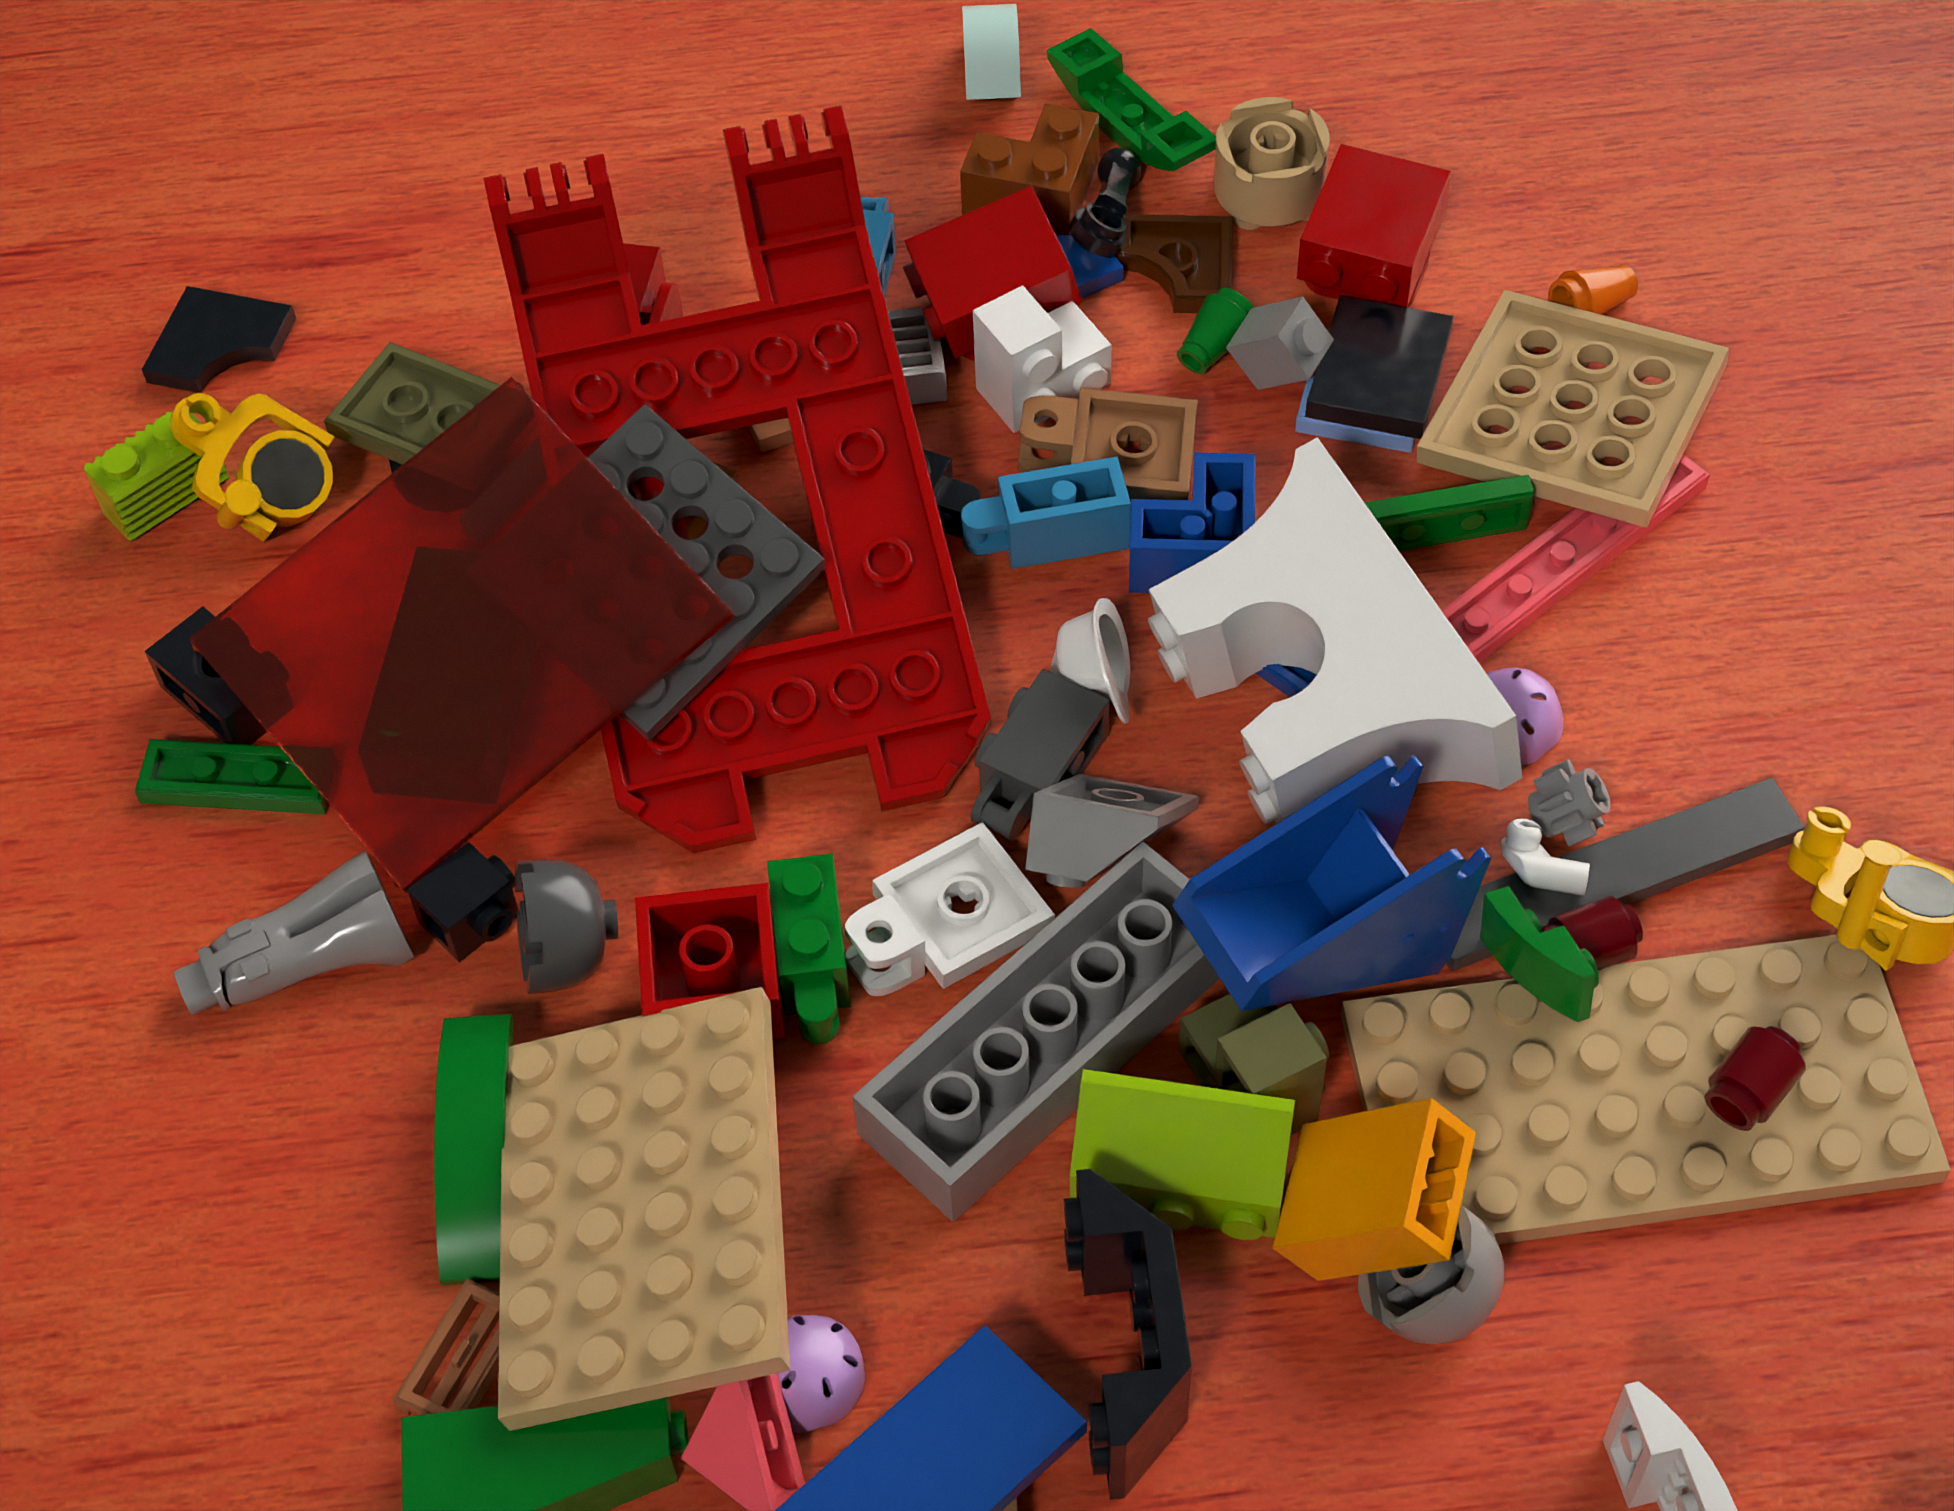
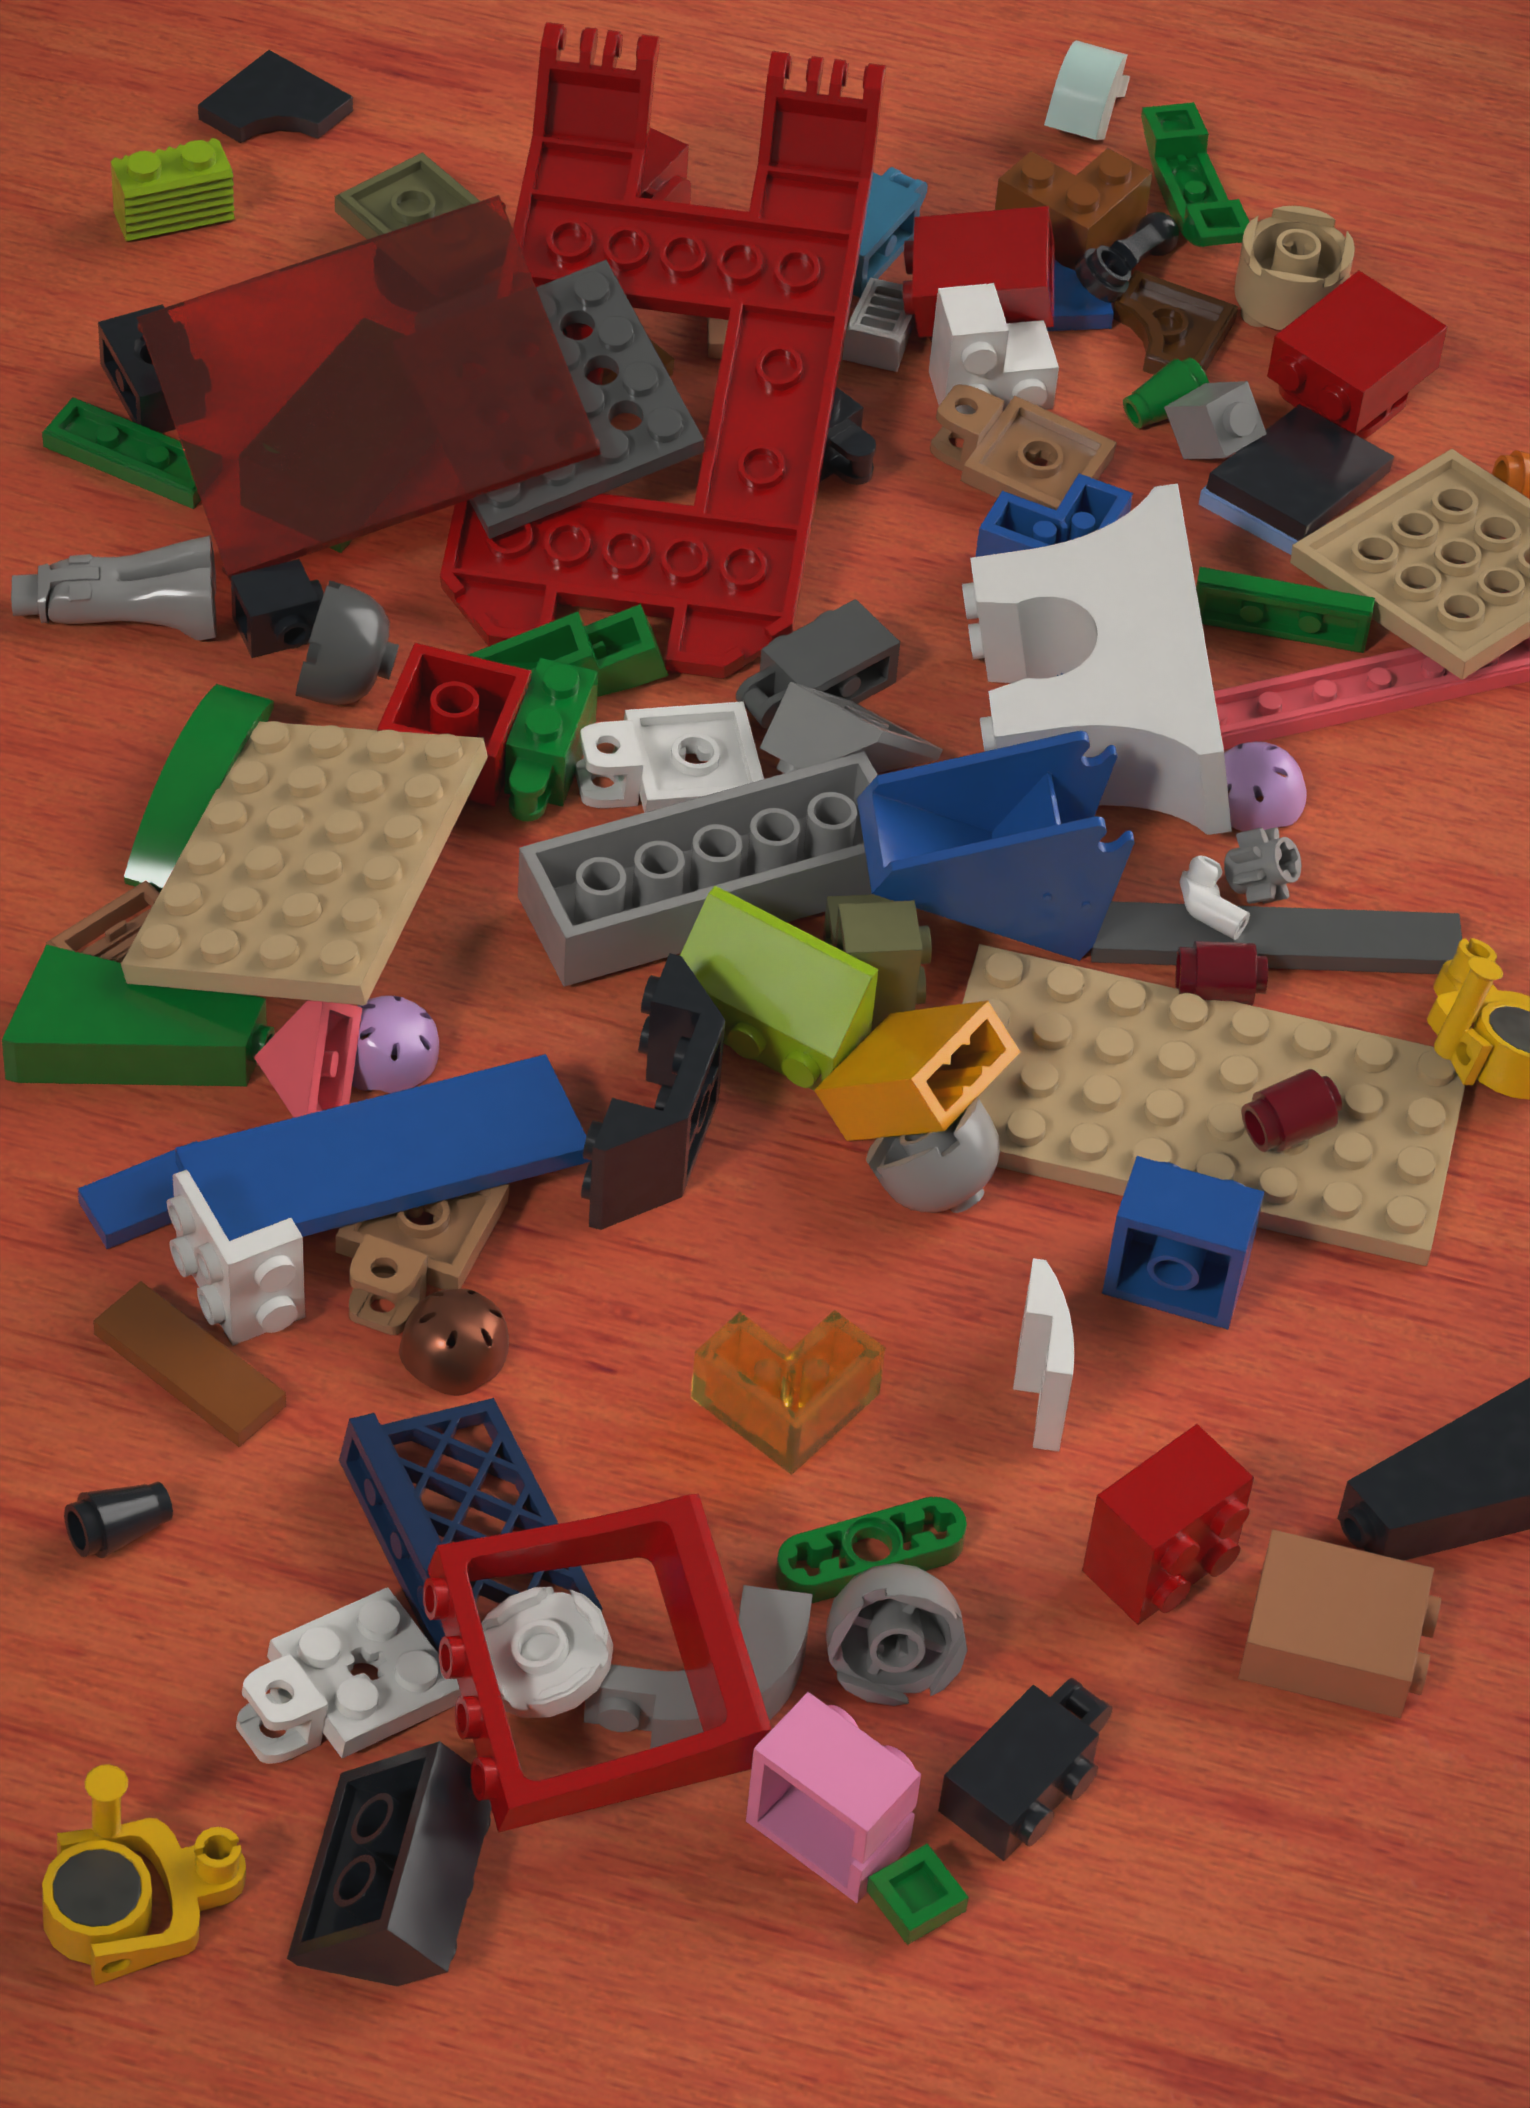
camera: 15 degrees right, 5 degrees down
(278, 478) = (276, 224): yellow piece -> none
(819, 819) = (615, 646): none -> green slope
(1052, 514) = (928, 484): dark azure brick -> none
(1096, 654) = (914, 608): white piece -> none
(1540, 961) = (1160, 959): green slope -> none
(1732, 1275) = (1182, 1242): none -> blue brick

